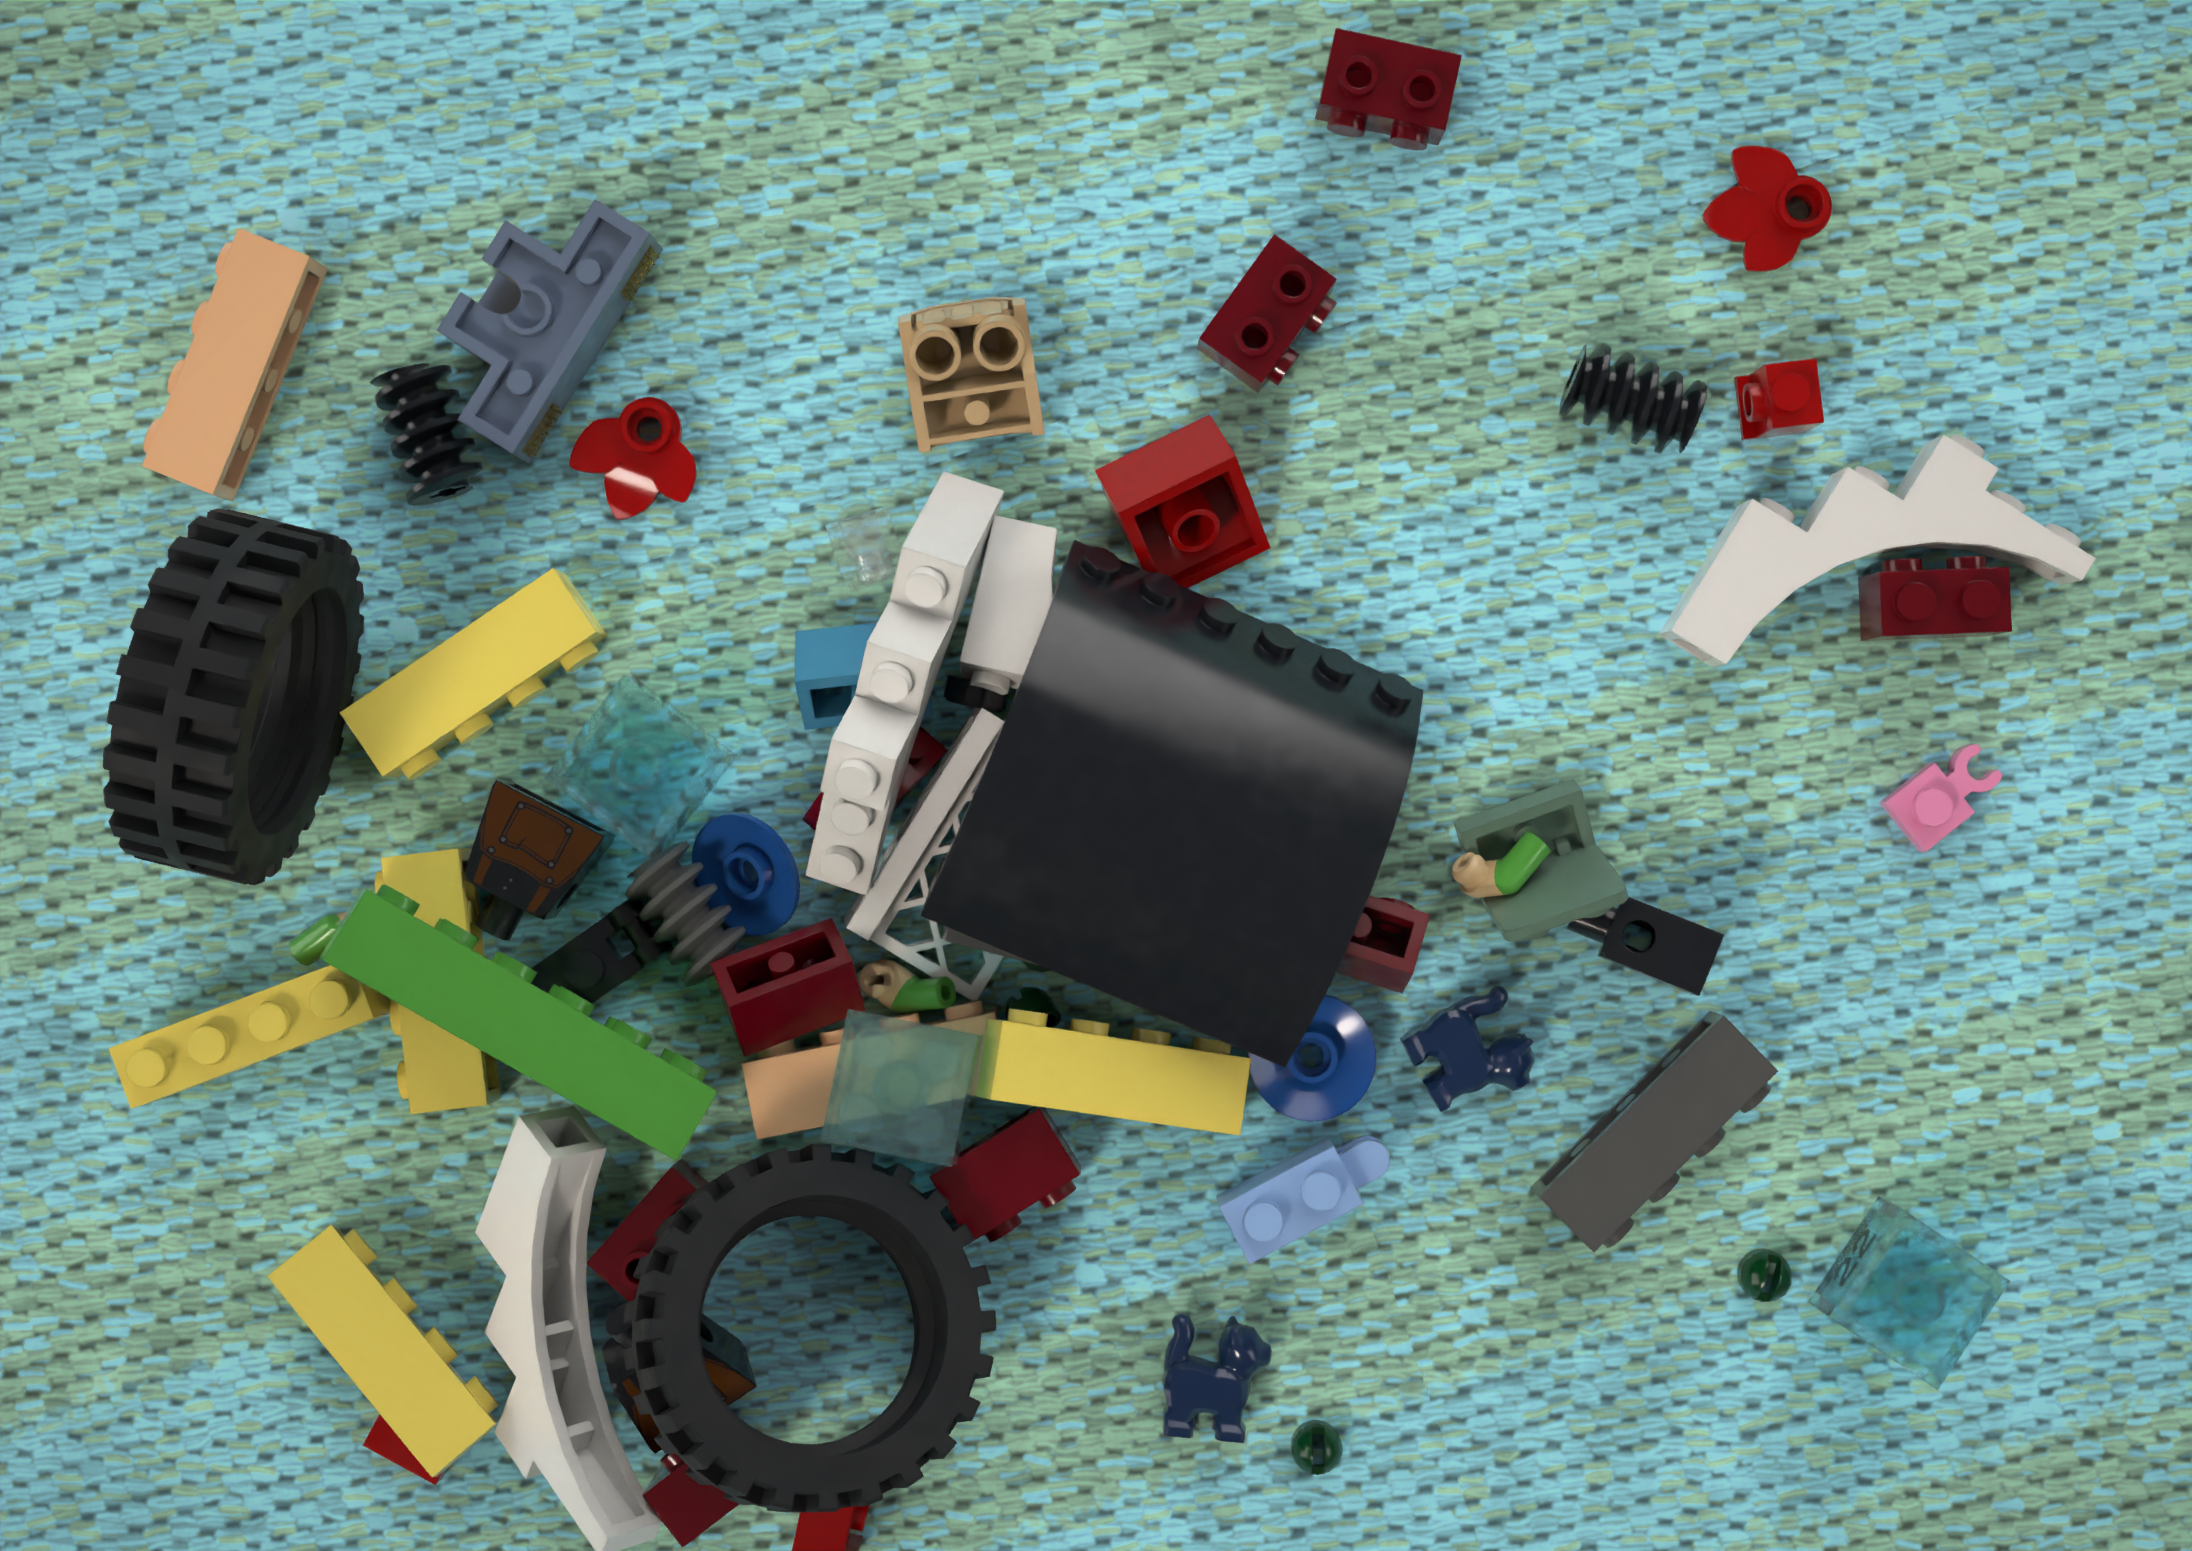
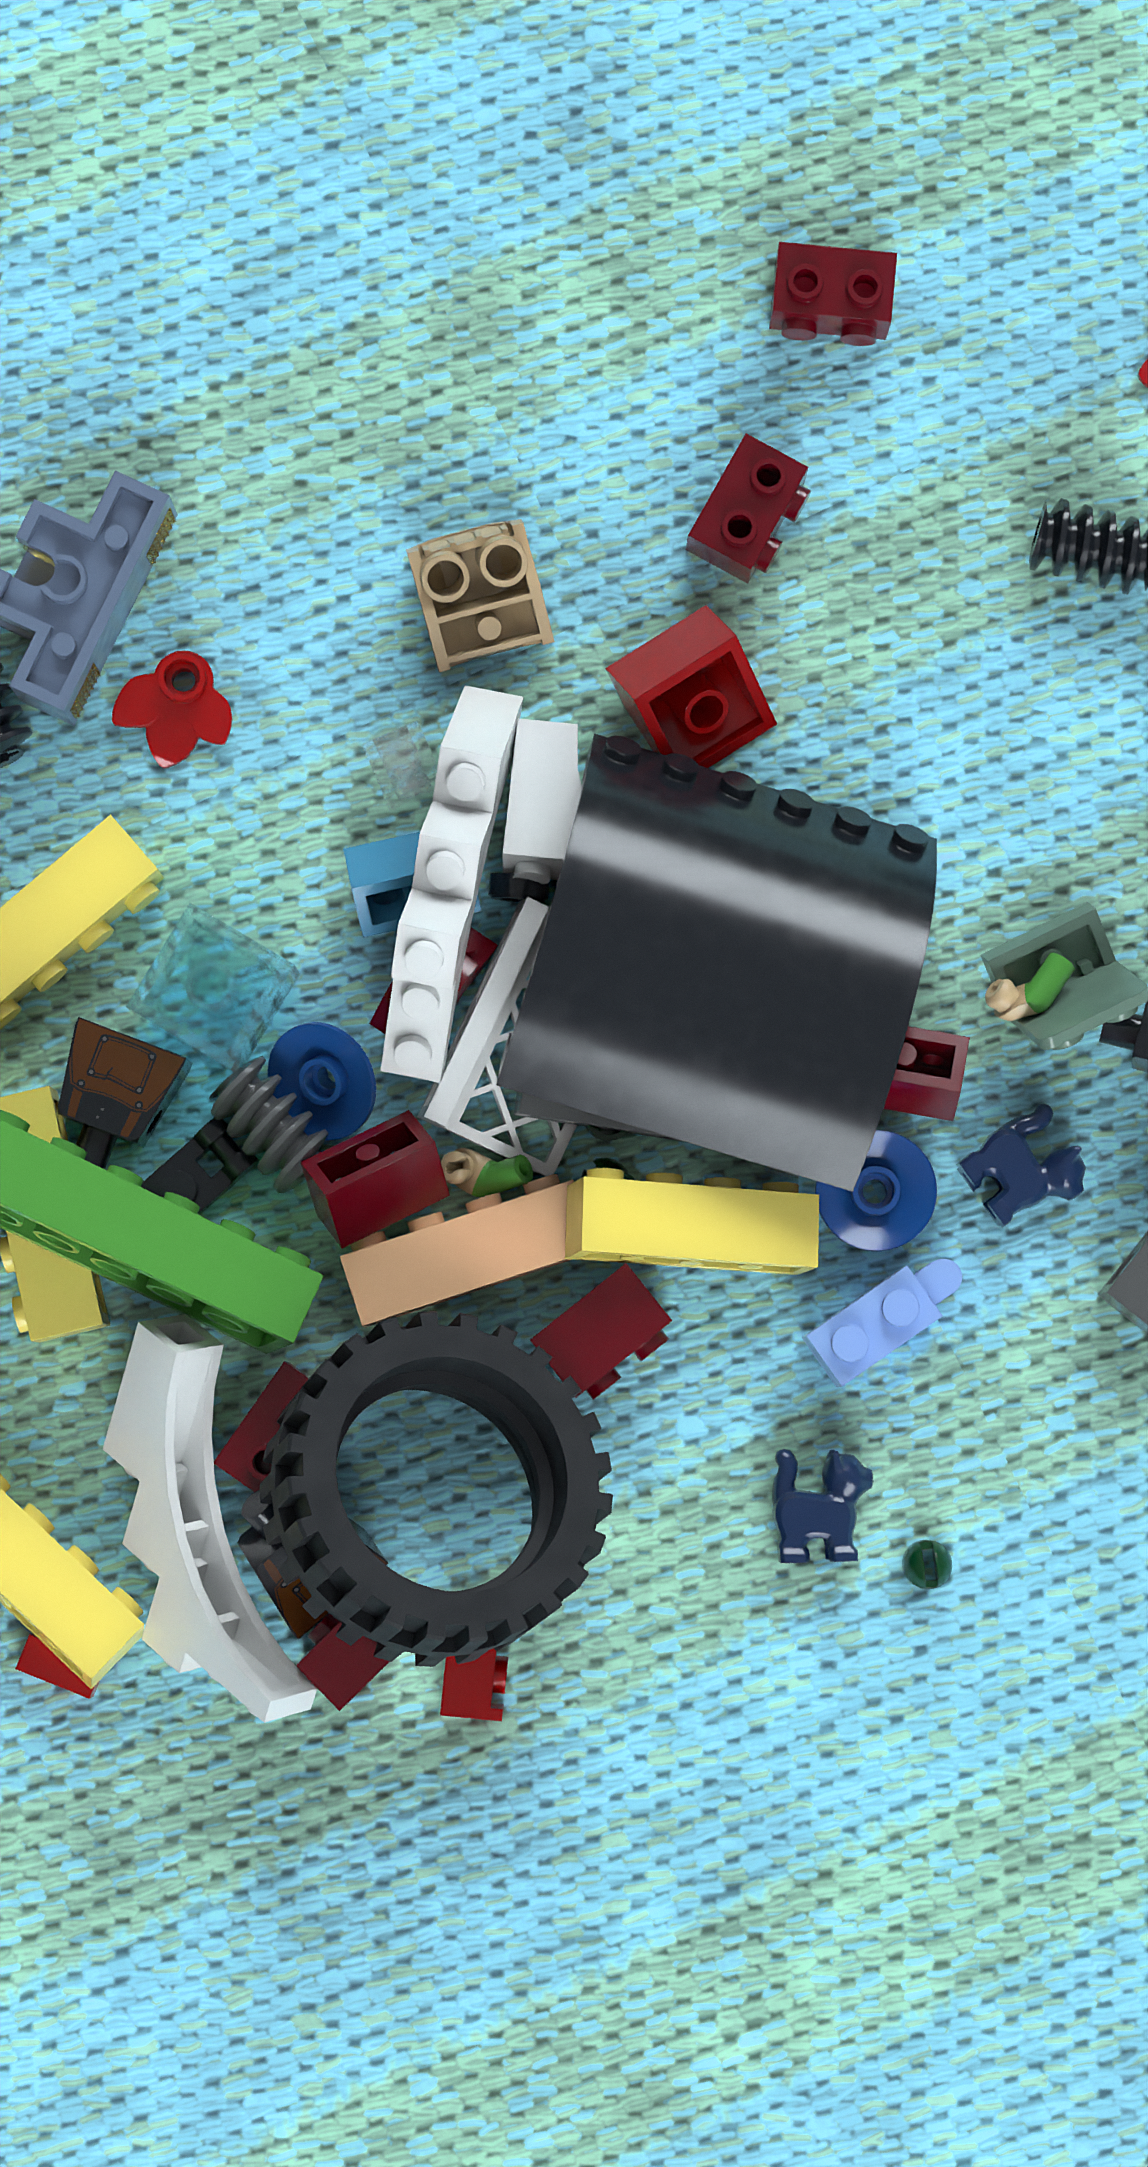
camera: 10 degrees left, 5 degrees down
(902, 1088) = (496, 1252): clear light blue brick -> none

